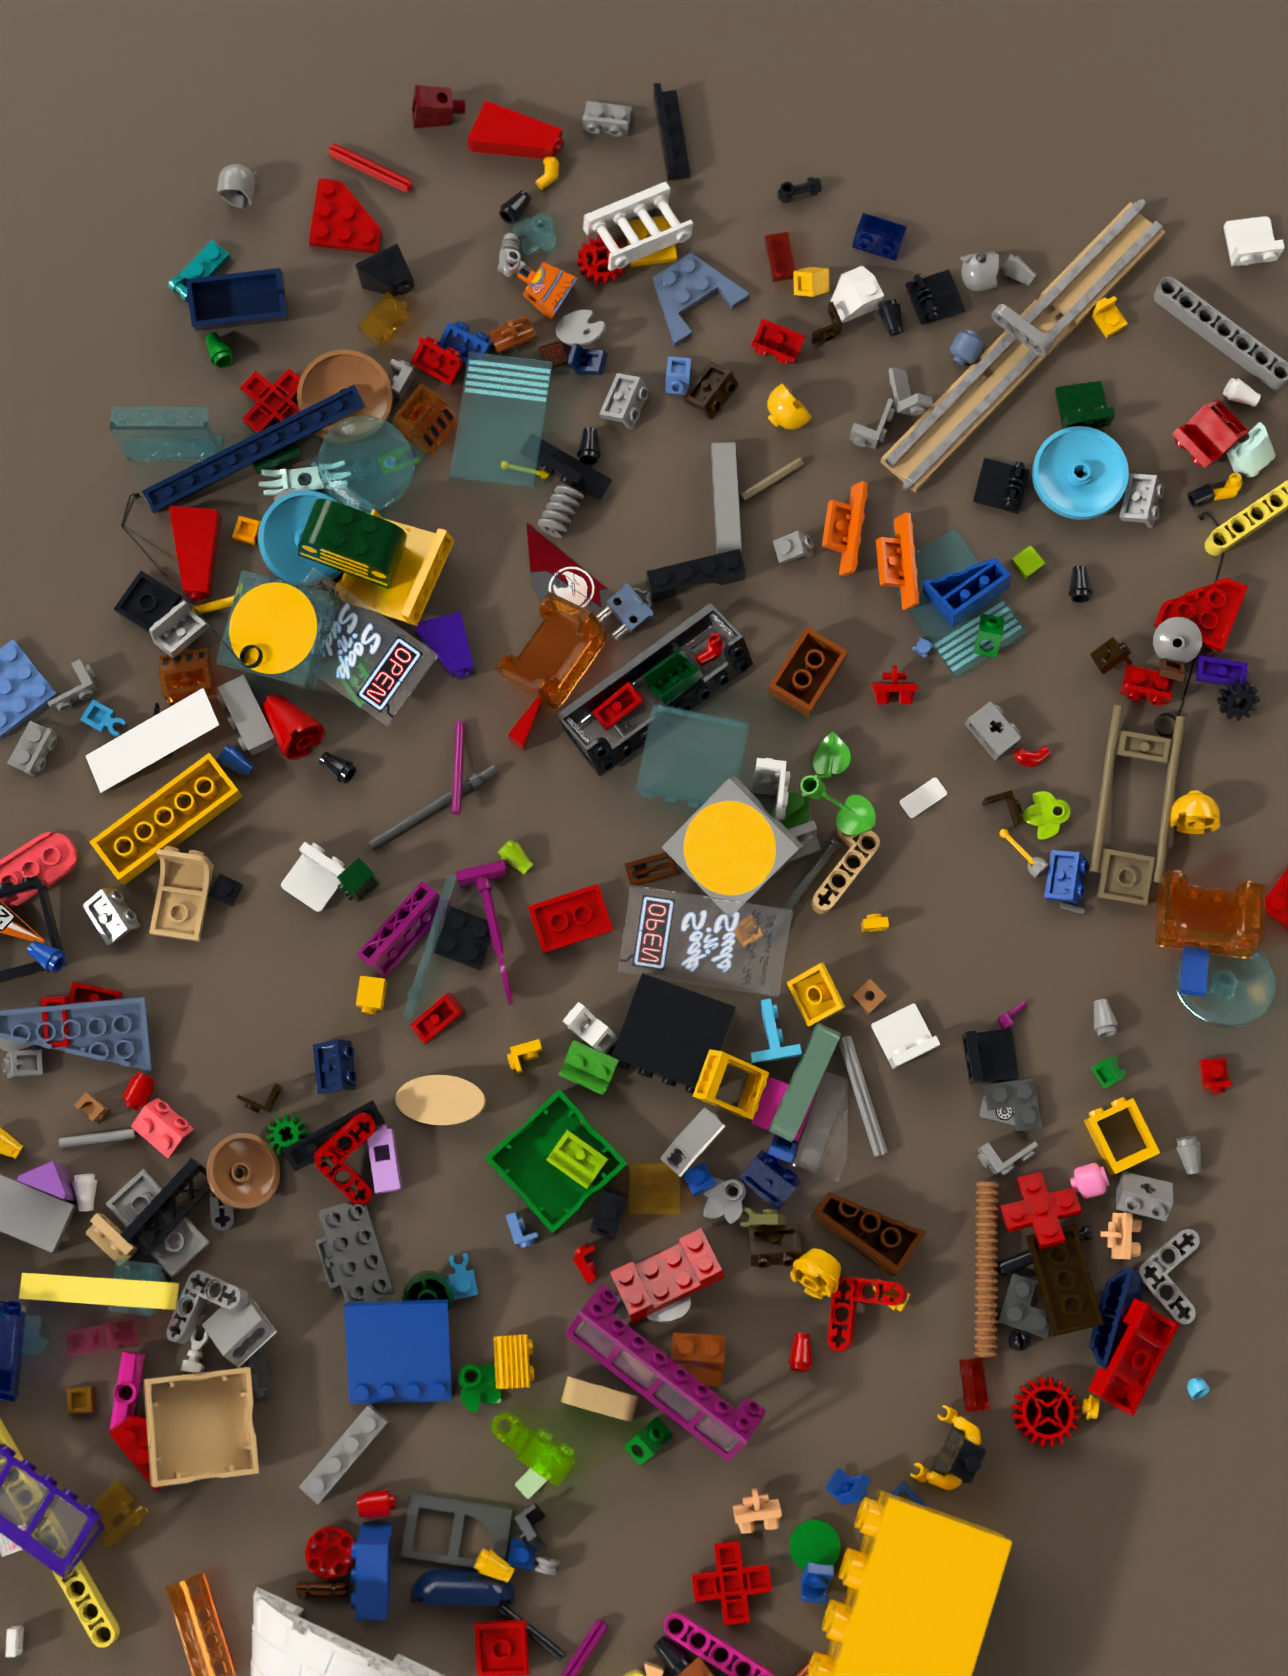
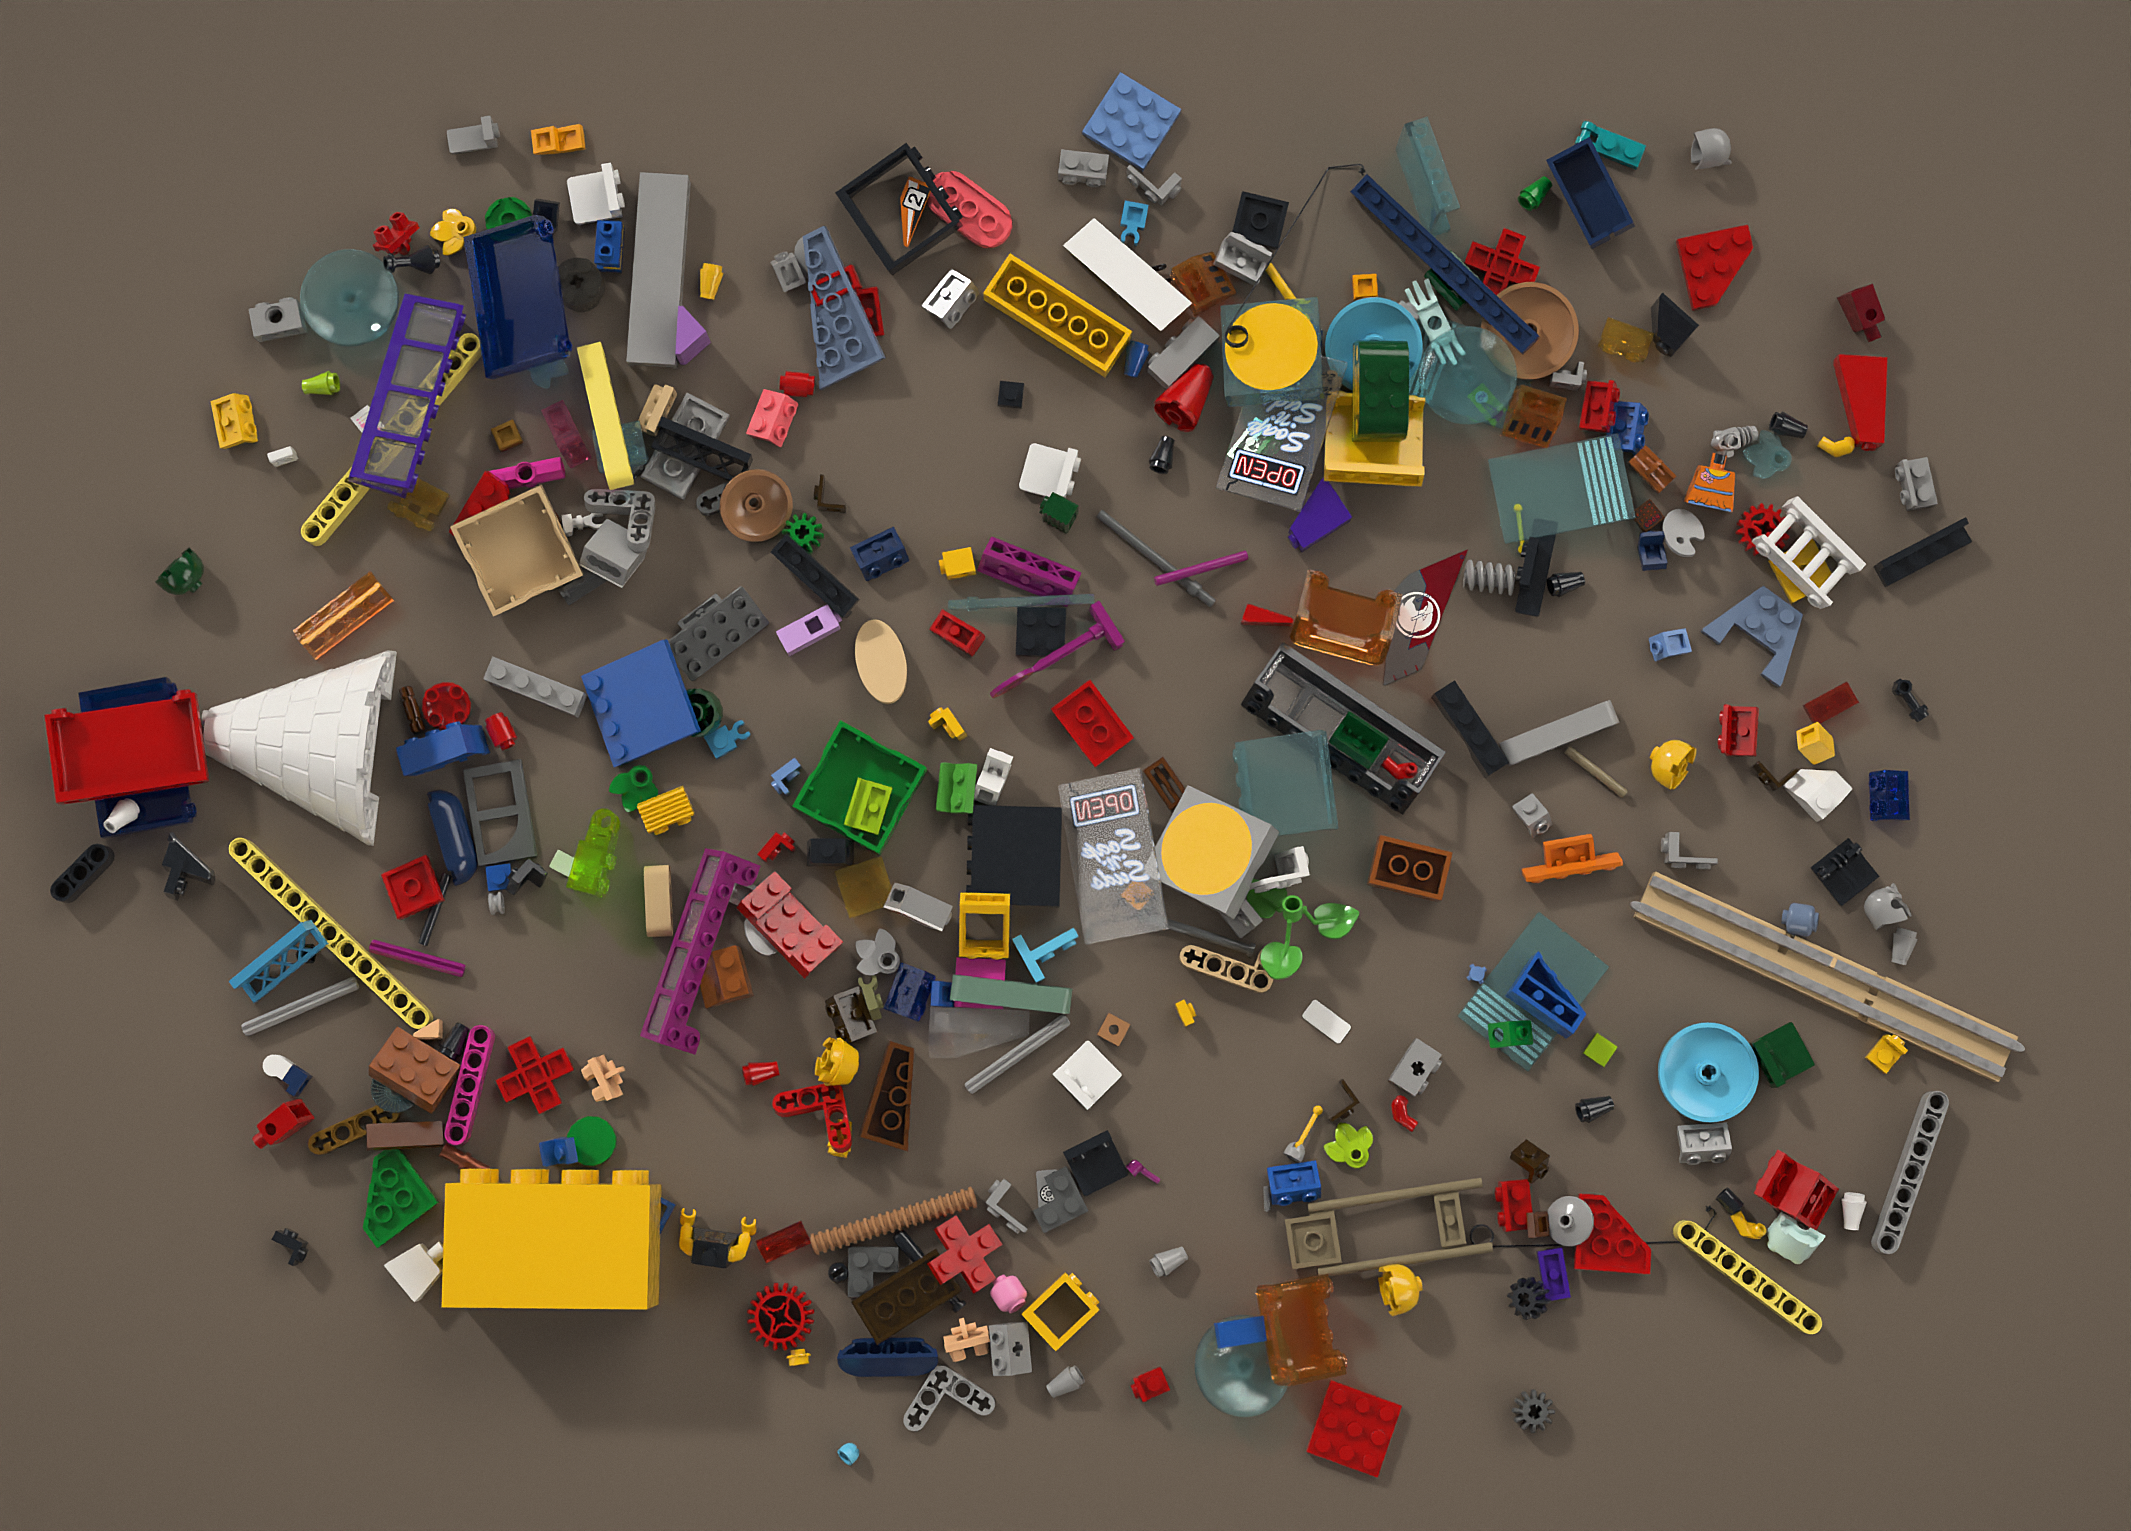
camera: 70 degrees right, 5 degrees up
(47, 956) = (890, 256): blue cone -> none
(85, 1189) = (691, 370): white cone -> none
(92, 1107) = (769, 348): medium nougat piece -> none
(97, 1138) = (743, 362): light grey bar -> none
(181, 894) = (991, 356): tan bracket -> none
(196, 545) = (1330, 245): red slope -> none
(339, 1154) = (794, 587): red beam -> none
(370, 167) = (1778, 270): red axle -> none
(493, 1566) = (480, 854): yellow cone -> none
(515, 856) = (1134, 651): lime cone -> none
(618, 706) = (1314, 699): red slope -> none
(625, 400) = (1625, 601): light grey bracket -> none
(630, 608) = (1415, 677): sand blue piece -> none
(650, 1439) = (636, 958): green bracket -> none
(699, 1179) = (888, 926): blue plate -> none
(711, 389) = (1666, 682): dark brown bracket -> none
(816, 995) = (1097, 978): yellow slope -> none
(847, 1488) = (652, 1153): blue bracket -> none
(891, 316) = (1807, 834): black cone -> none
(898, 562) = (1552, 920): orange bracket -> none
(903, 400) = (1729, 871): light grey bracket -> none
(904, 689) = (1427, 968): red hips -> none
(1001, 485) = (1670, 999): black hinge -> none
(1021, 329) = (1835, 967): light grey beam -> none
(1108, 1072) = (1117, 1280): green tile -> none
(1135, 1359) = (856, 1384): red piece -> none
(1252, 241) = (2021, 1173): white bracket -> none

